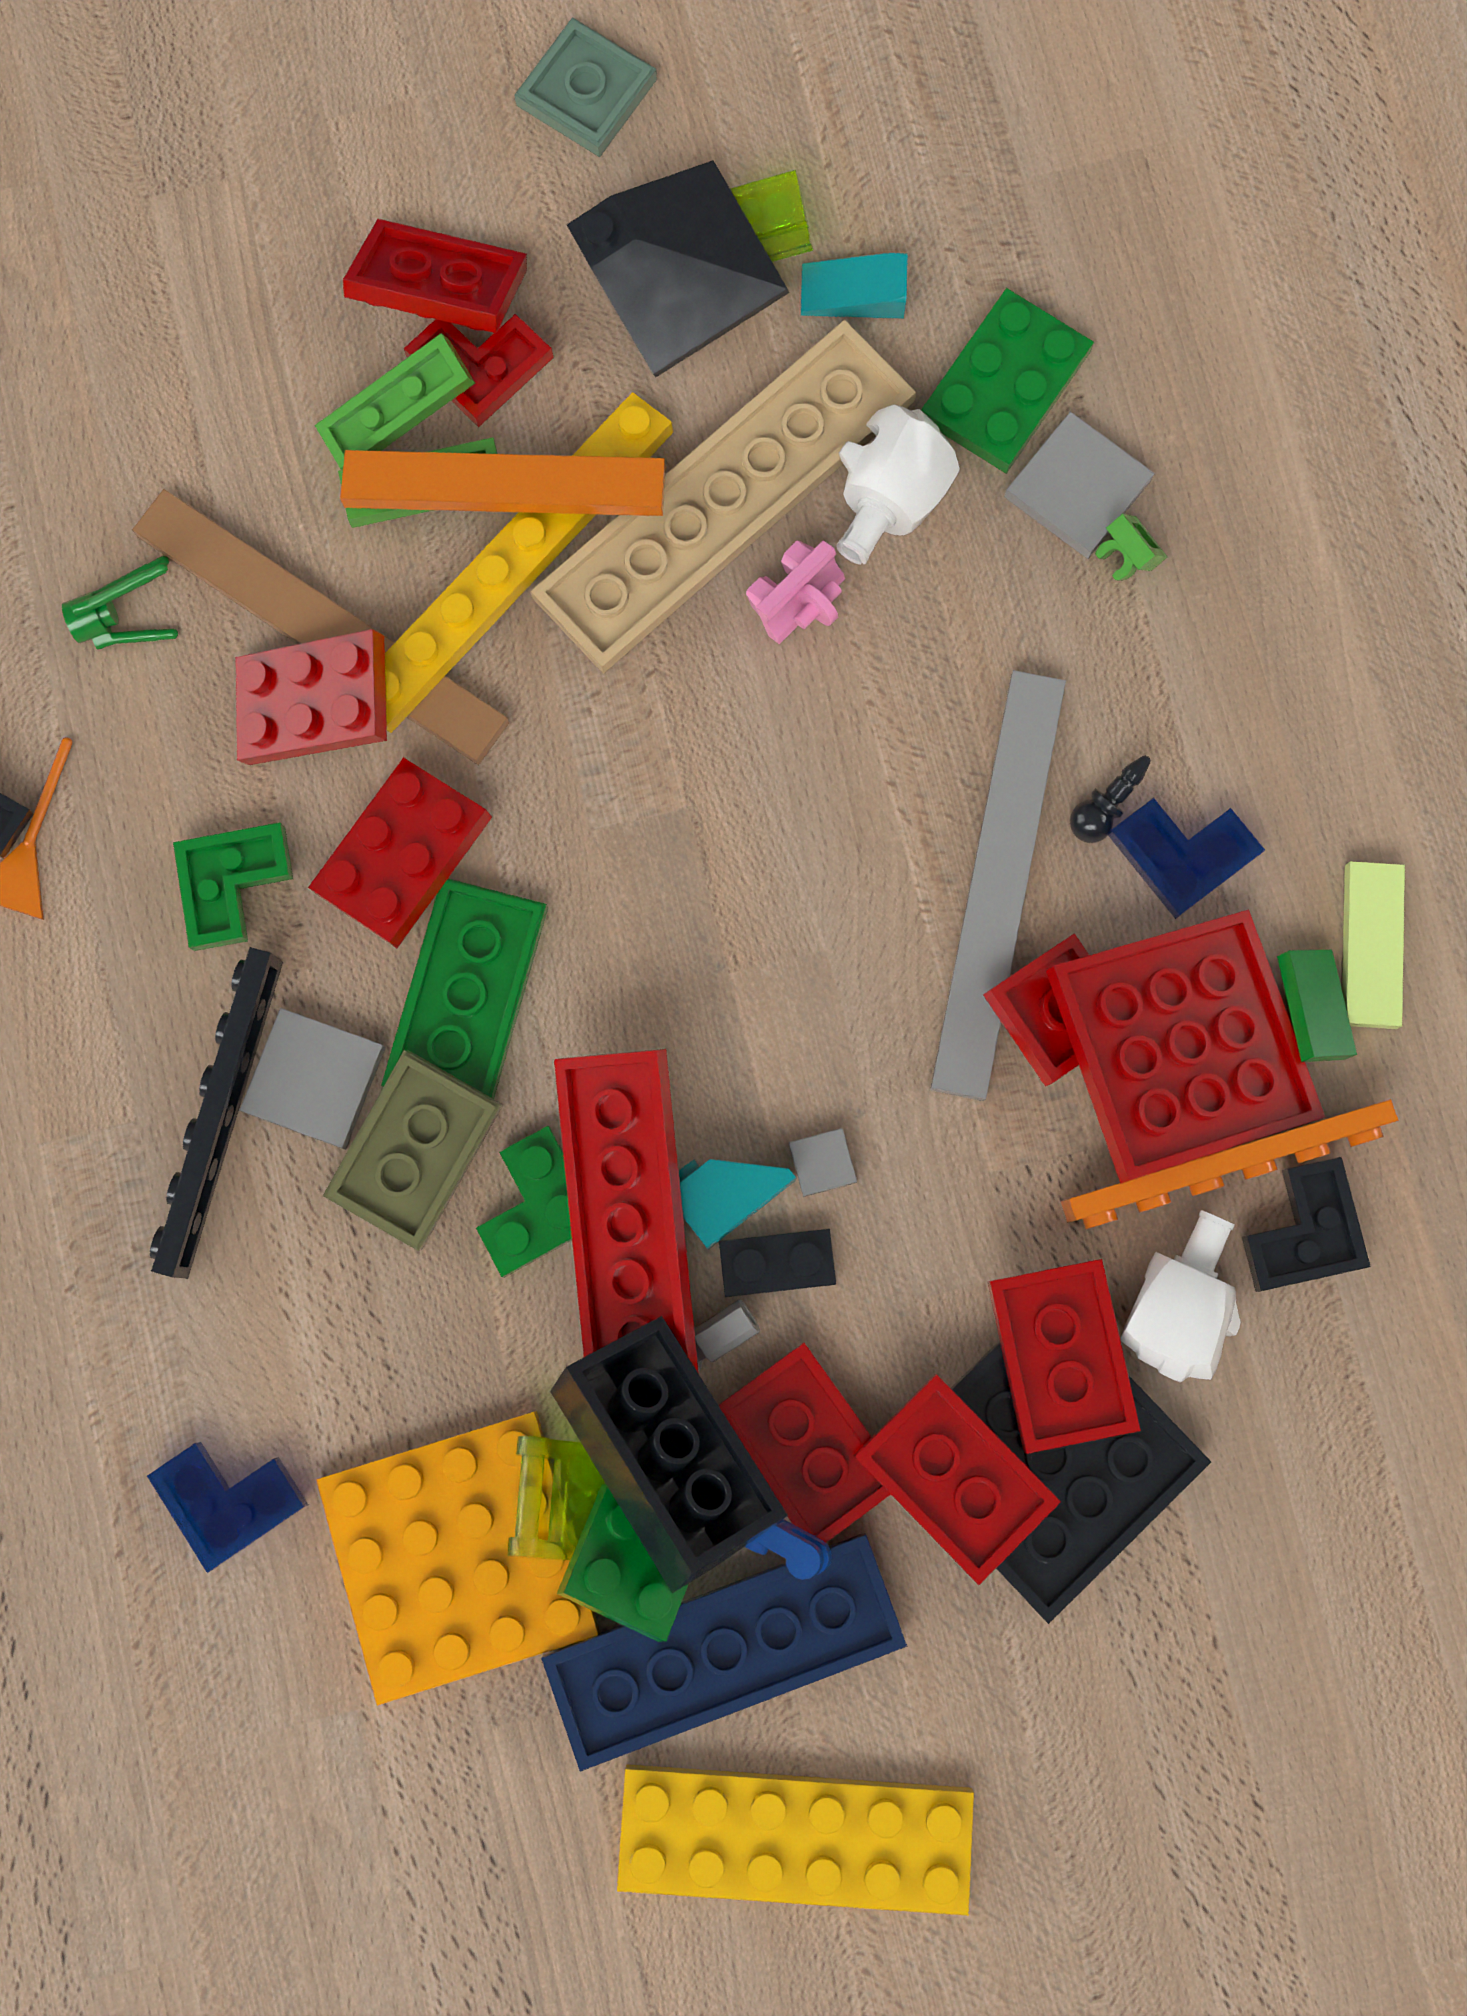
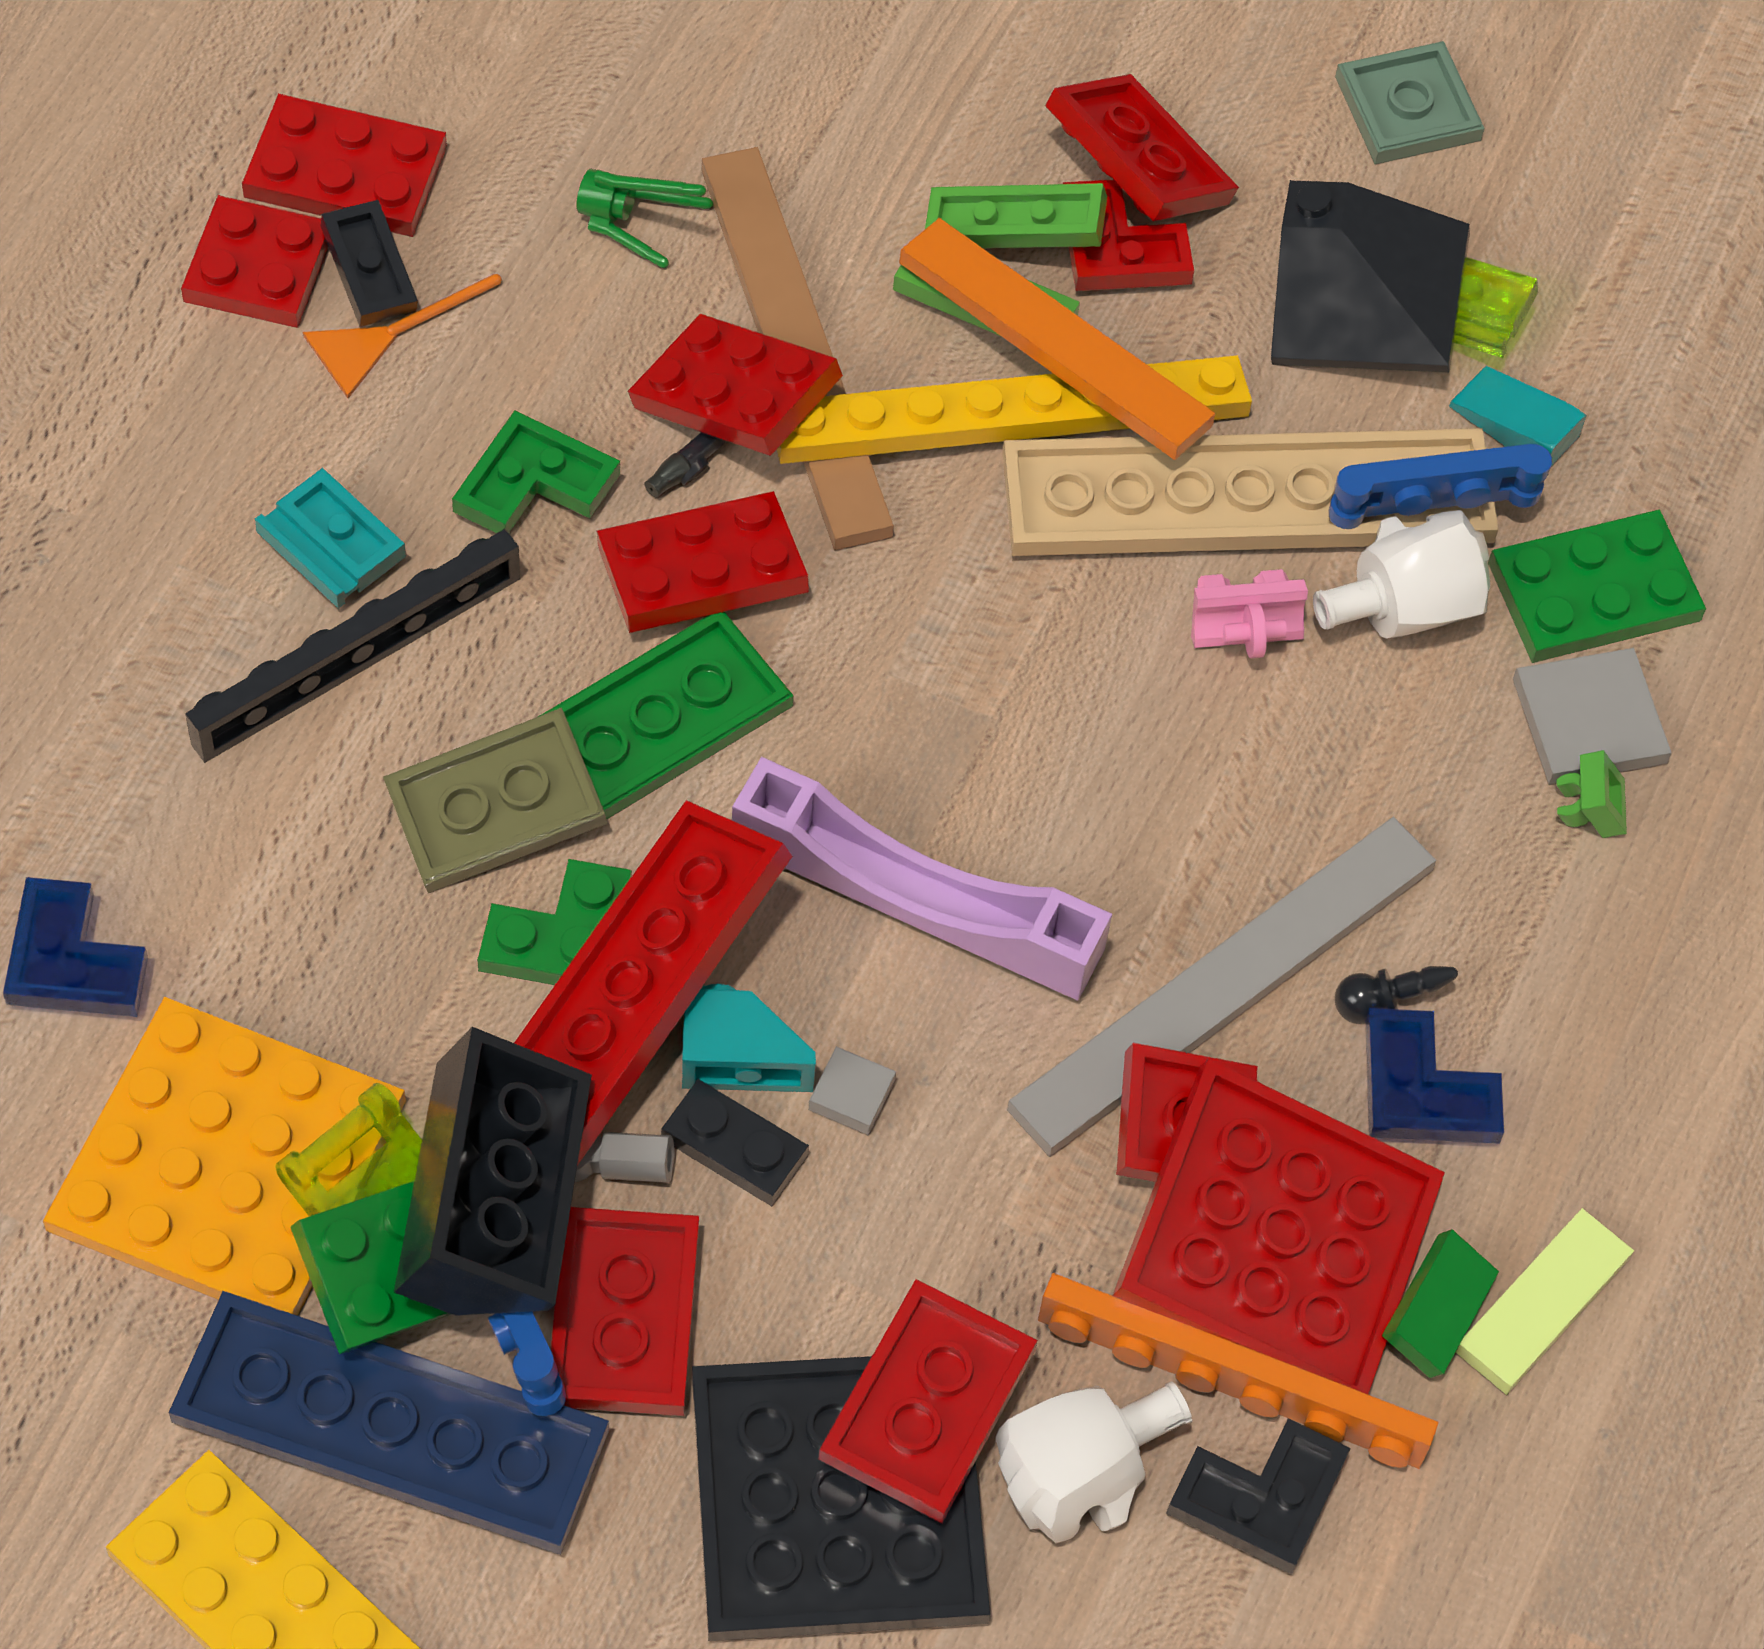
camera: 30 degrees right, 20 degrees down
(128, 1043) = (330, 537): none -> teal plate
(312, 1078) = (460, 682): light grey tile -> none
(321, 786) = (684, 465): none -> piece
(699, 993) = (1013, 925): none -> lavender arch
(869, 377) = (1440, 482): none -> blue plate
(957, 1479) = (735, 1427): red plate -> none

